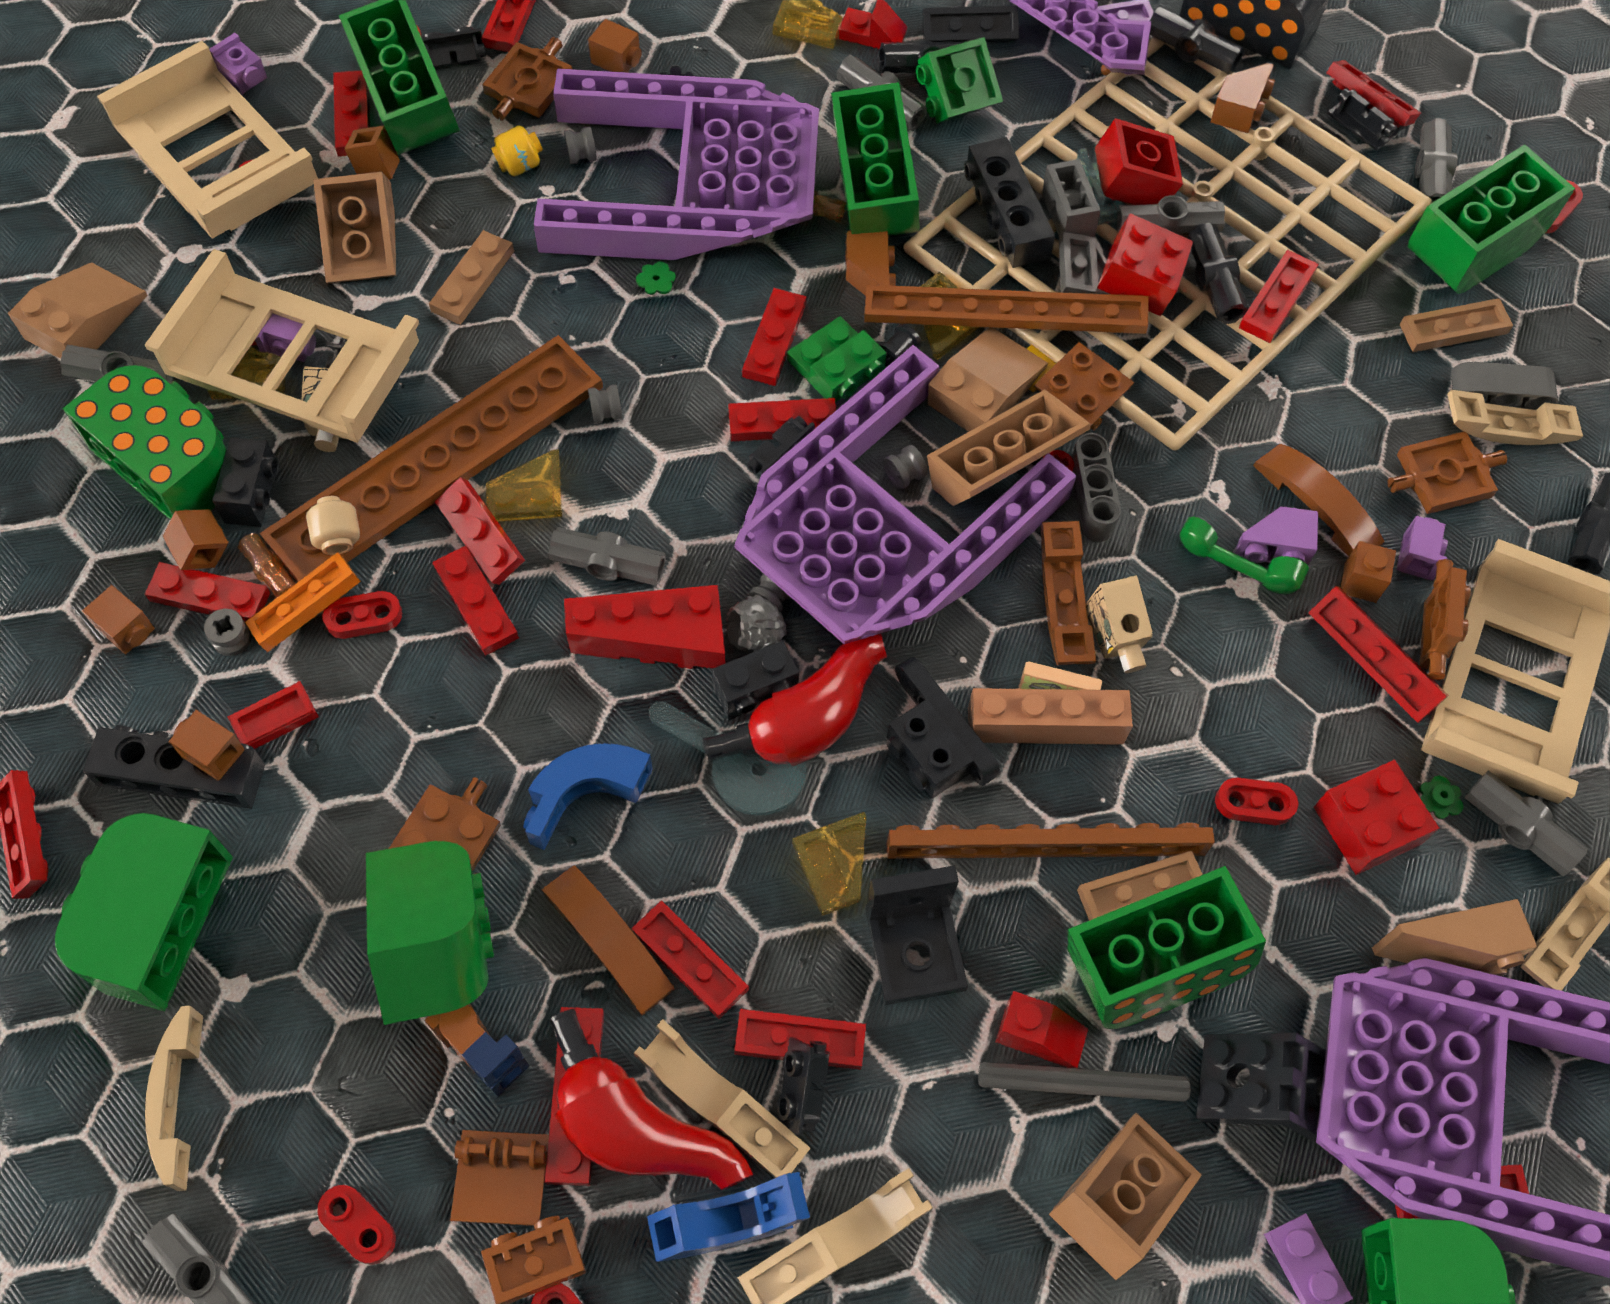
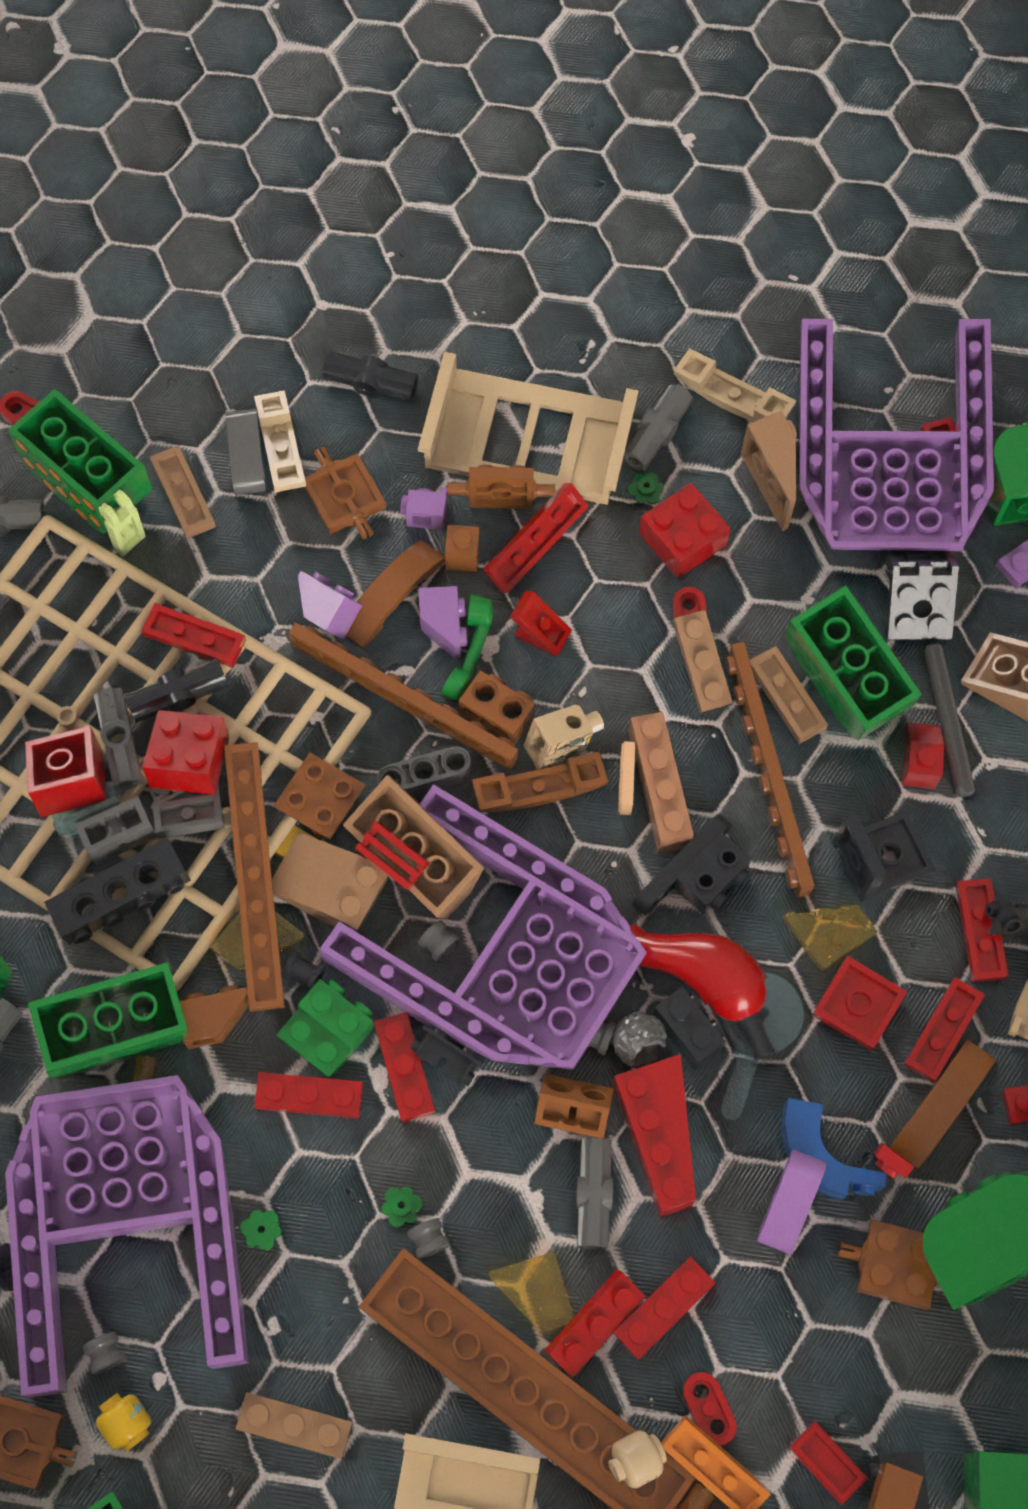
camera: 100 degrees left, 5 degrees up
(538, 730) = (791, 1201): none -> medium lavender beam
(546, 834) = (891, 1162): none -> red plate
(646, 396) = (398, 1216): none -> green plant
(699, 547) = (574, 1106): none -> dark orange brick
(743, 872) = (859, 1003): none -> red plate
(997, 417) = (370, 838): none -> red tile
(1159, 567) = (492, 712): none -> dark orange brick
(1182, 492) = (412, 701): none -> dark orange plate
(1197, 796) = (702, 661): none -> medium nougat plate
(1263, 631) = (539, 624): none -> red slope
(1307, 426) = (327, 606): none -> slope
(1414, 250) = (122, 524): none -> yellowish green hinge

